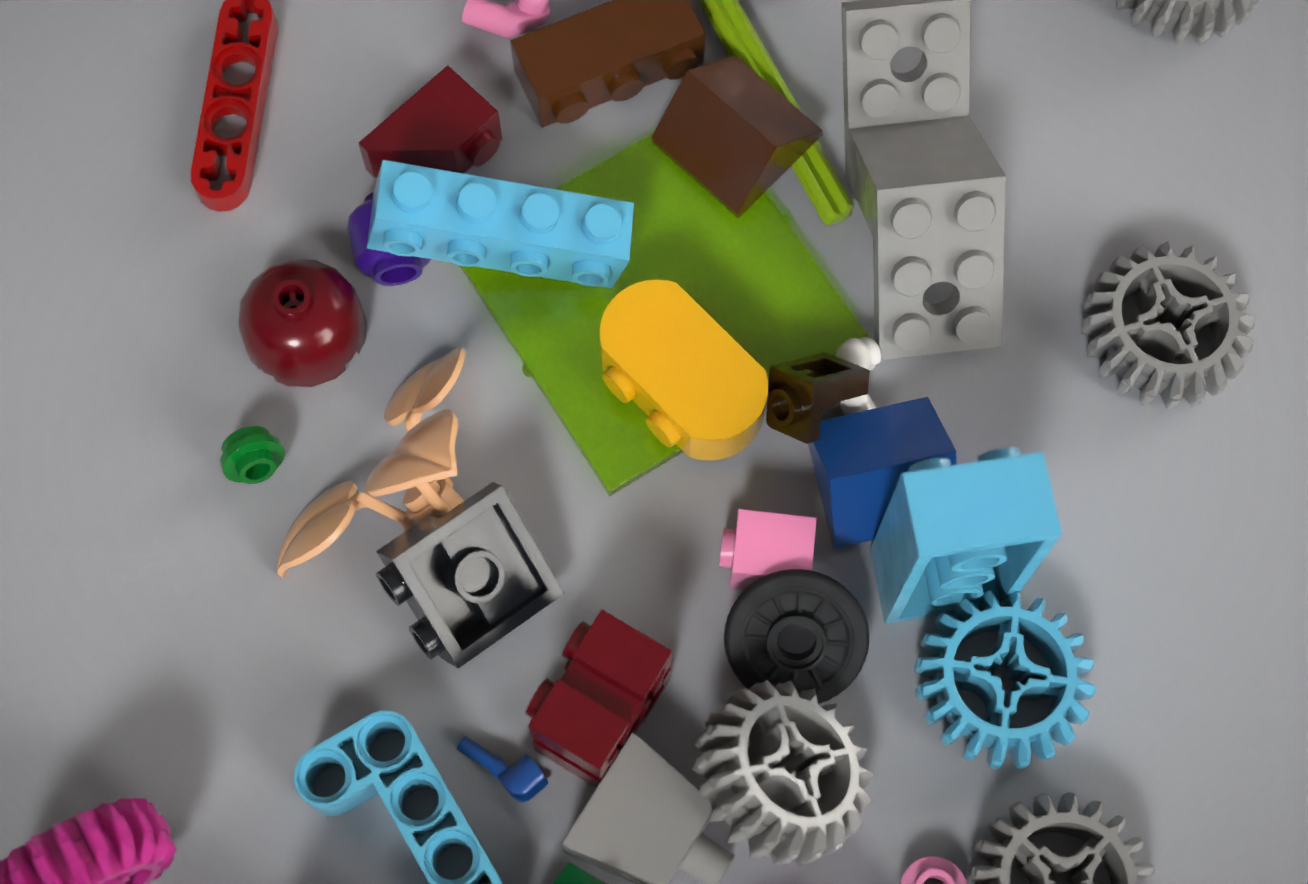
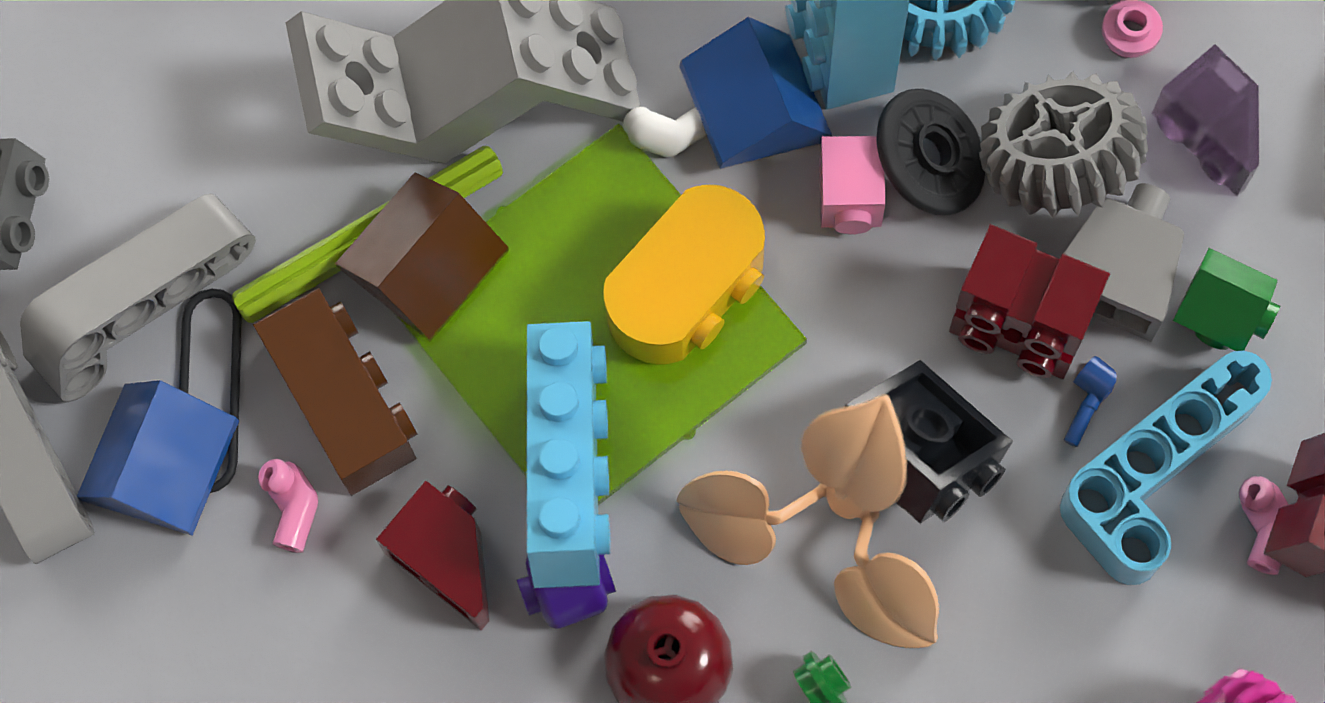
camera: 90 degrees left, 0 degrees up
(805, 387) = (693, 153): dark brown bracket -> none

